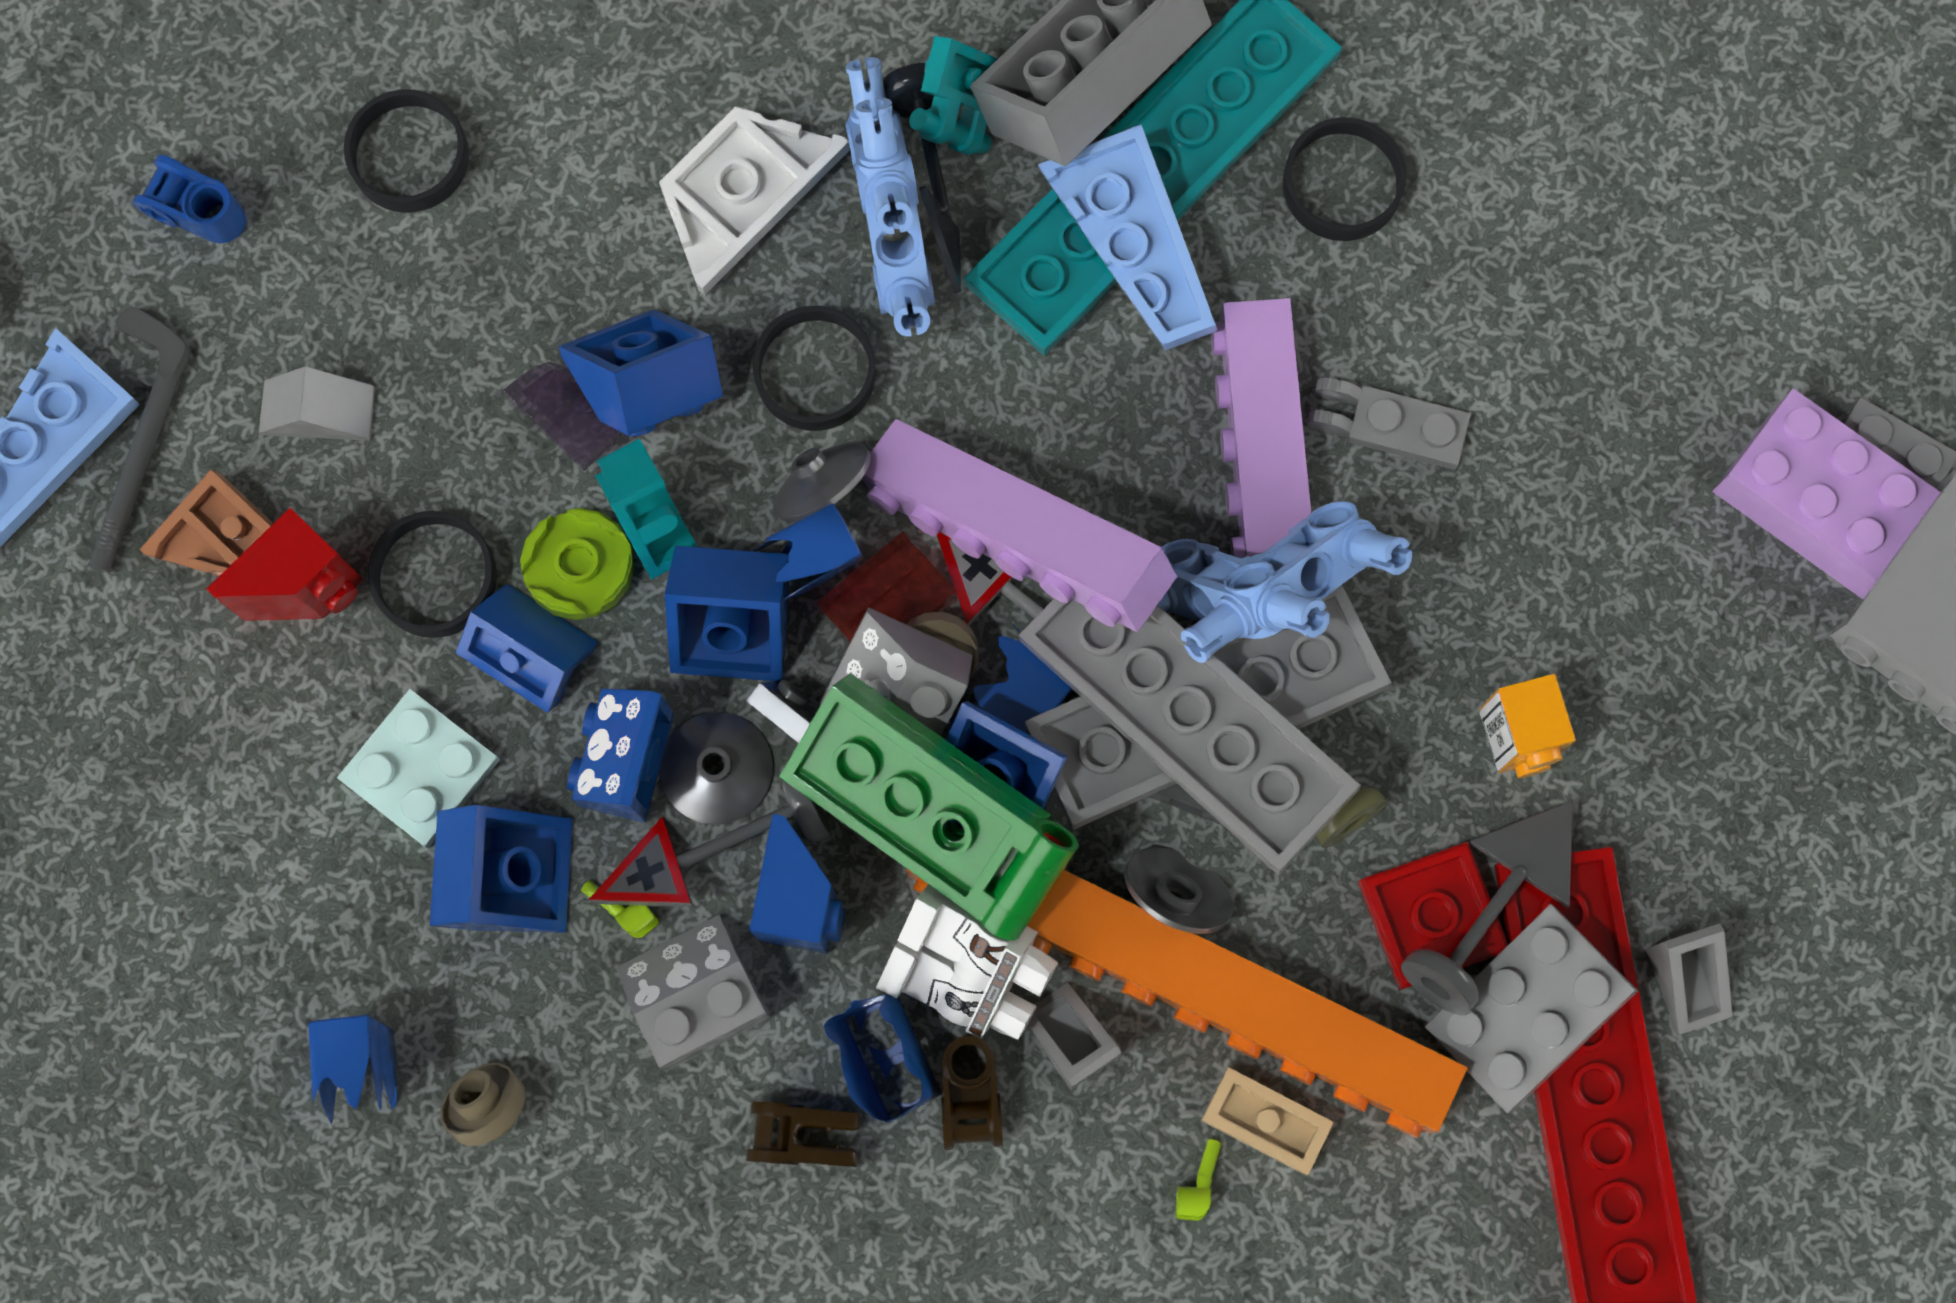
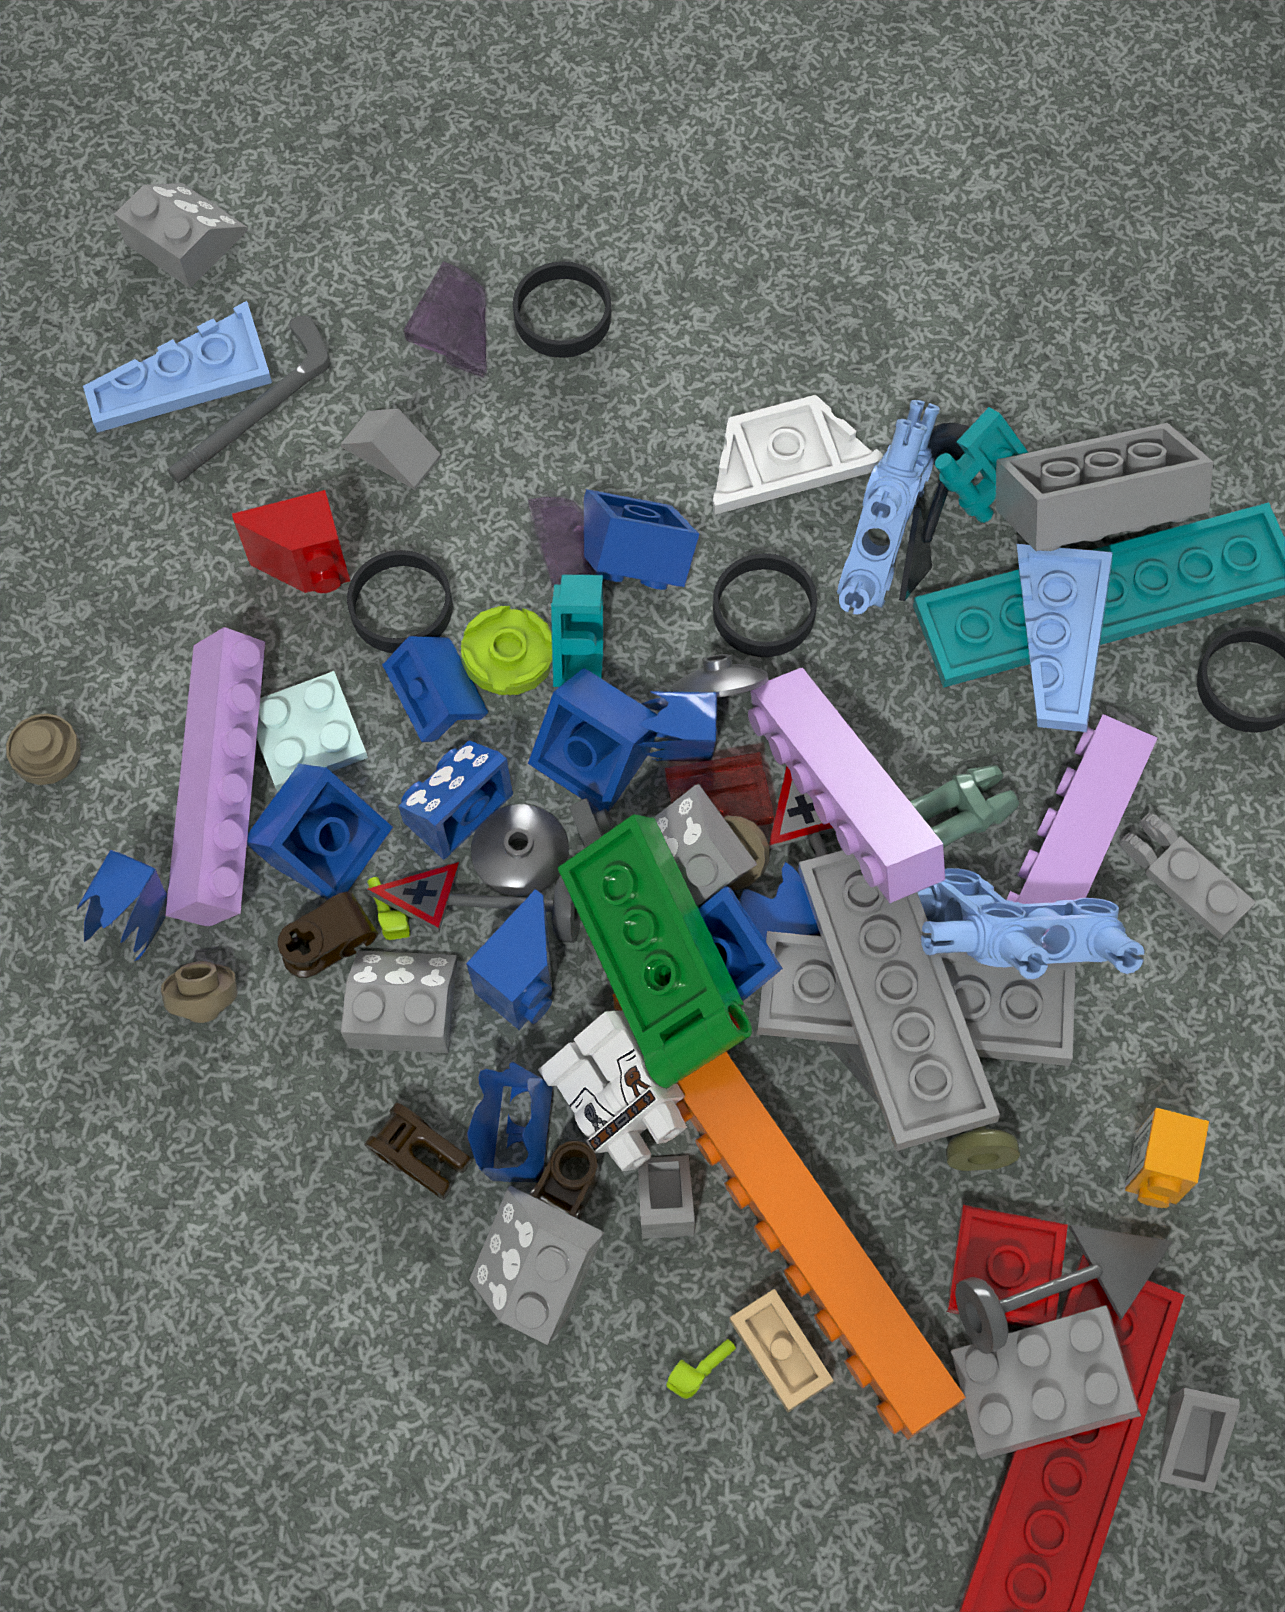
camera: 30 degrees right, 10 degrees down
(153, 946) = (43, 749): none -> dark tan plate
(185, 198) = (391, 267): blue piece -> none
(208, 527) = (261, 481): nougat wing -> none
(295, 227) = (452, 320): none -> clear purple slope
(360, 874) = (216, 779): none -> lavender brick
(581, 962) = (329, 932): none -> dark brown piece
(986, 1183) = (534, 1264): none -> light grey slope
(1129, 460) = (965, 794): none -> sand green piece
(1178, 891) = (813, 1131): flat silver dish -> none

